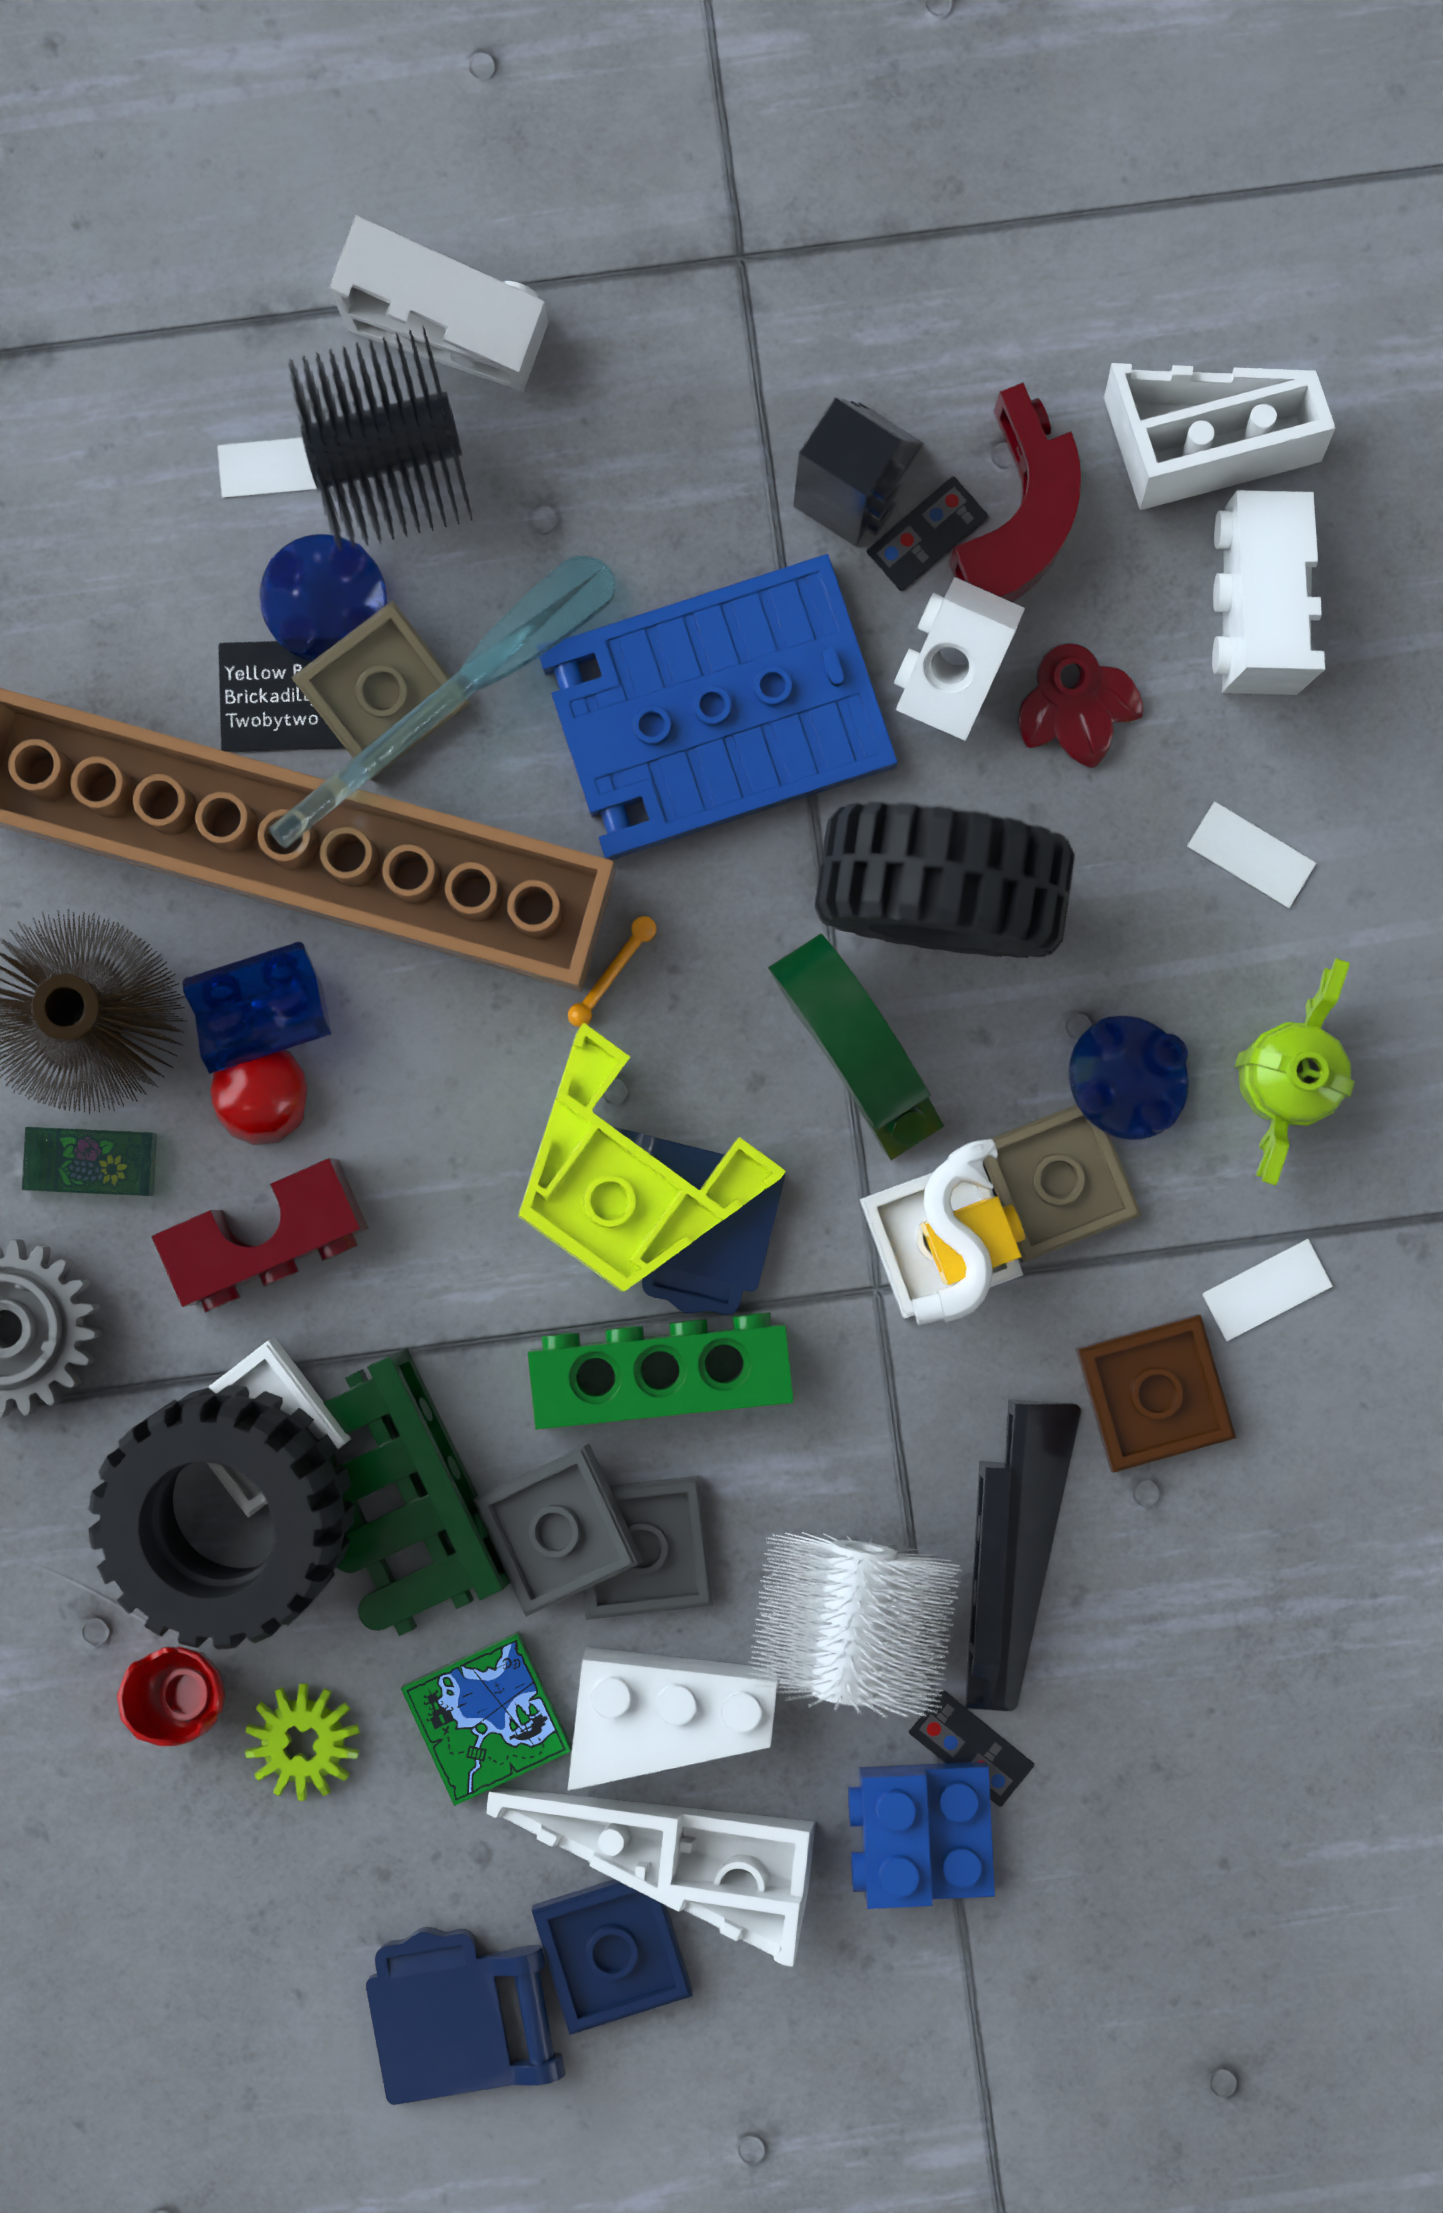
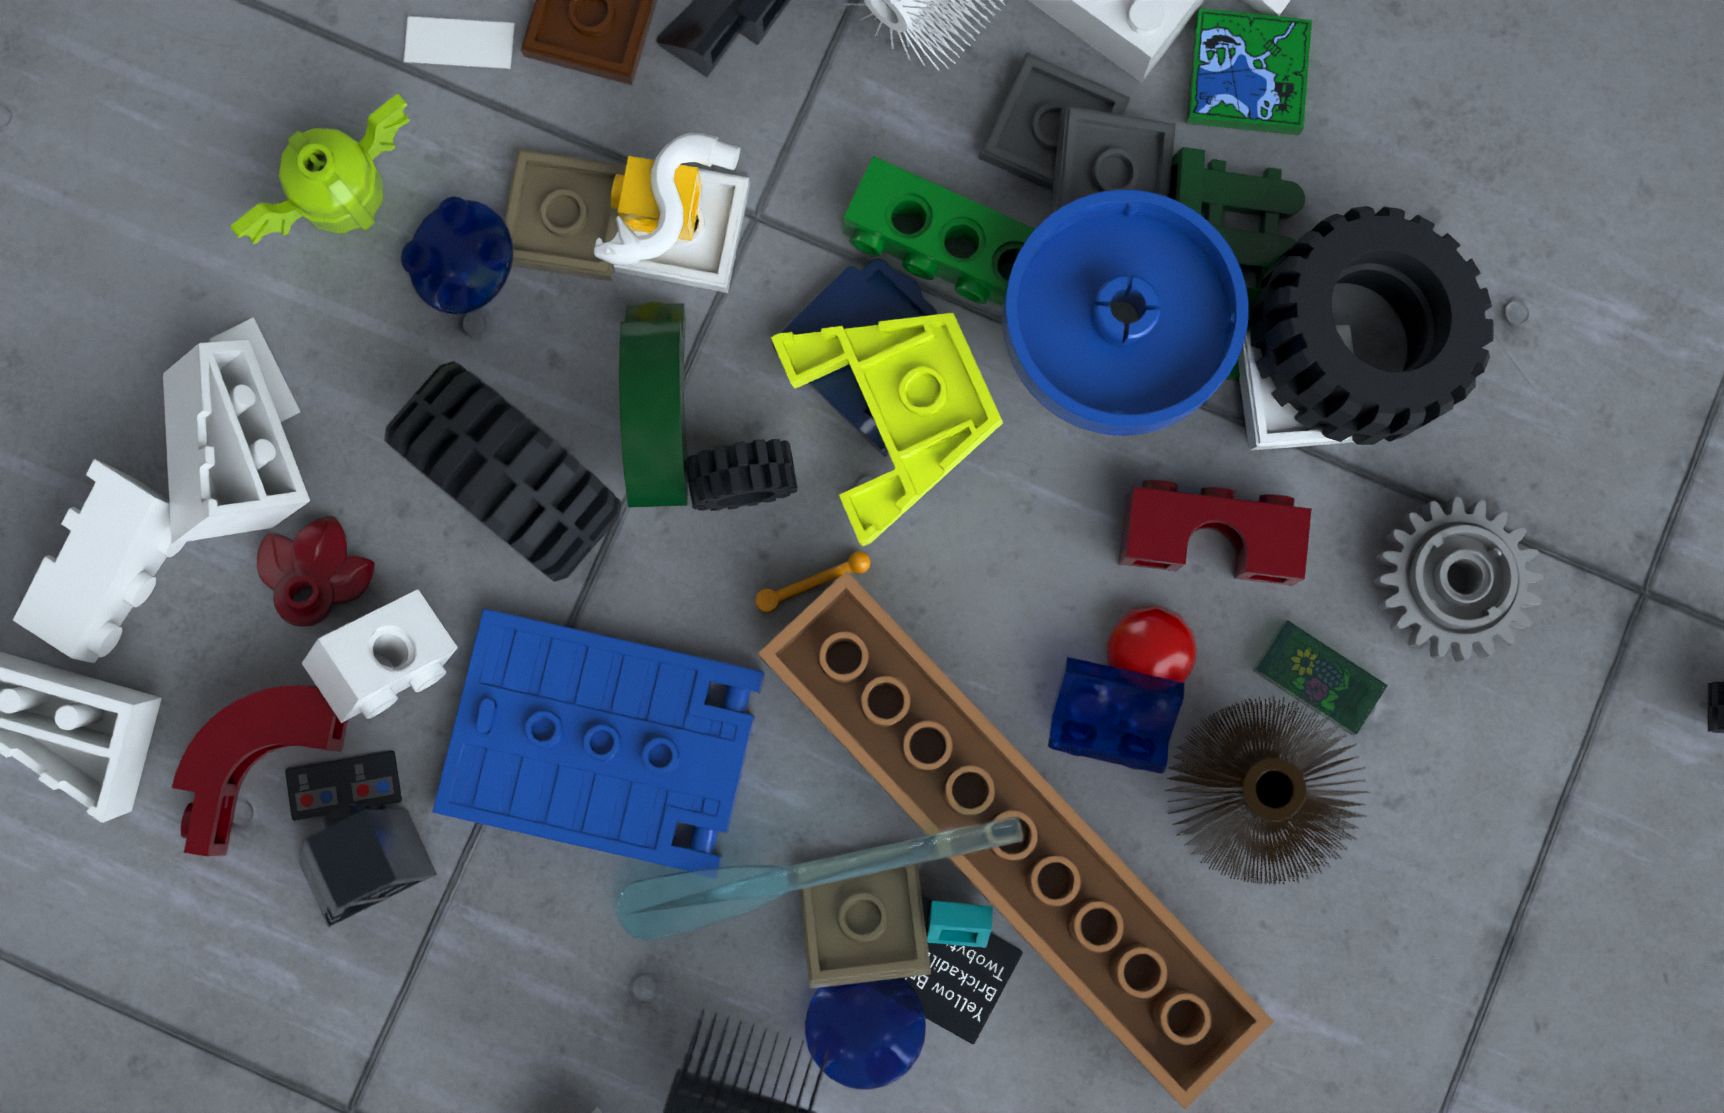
camera: 150 degrees left, 5 degrees down
(171, 1696) = (1488, 218): red hair -> none
(290, 735) = (959, 924): none -> teal tile
(304, 1715) = (1388, 152): lime gear -> none
(392, 1397) = (1138, 253): none -> blue piece
(732, 1021) = (741, 474): none -> black tyre
(1227, 764) = (225, 446): none -> white wedge

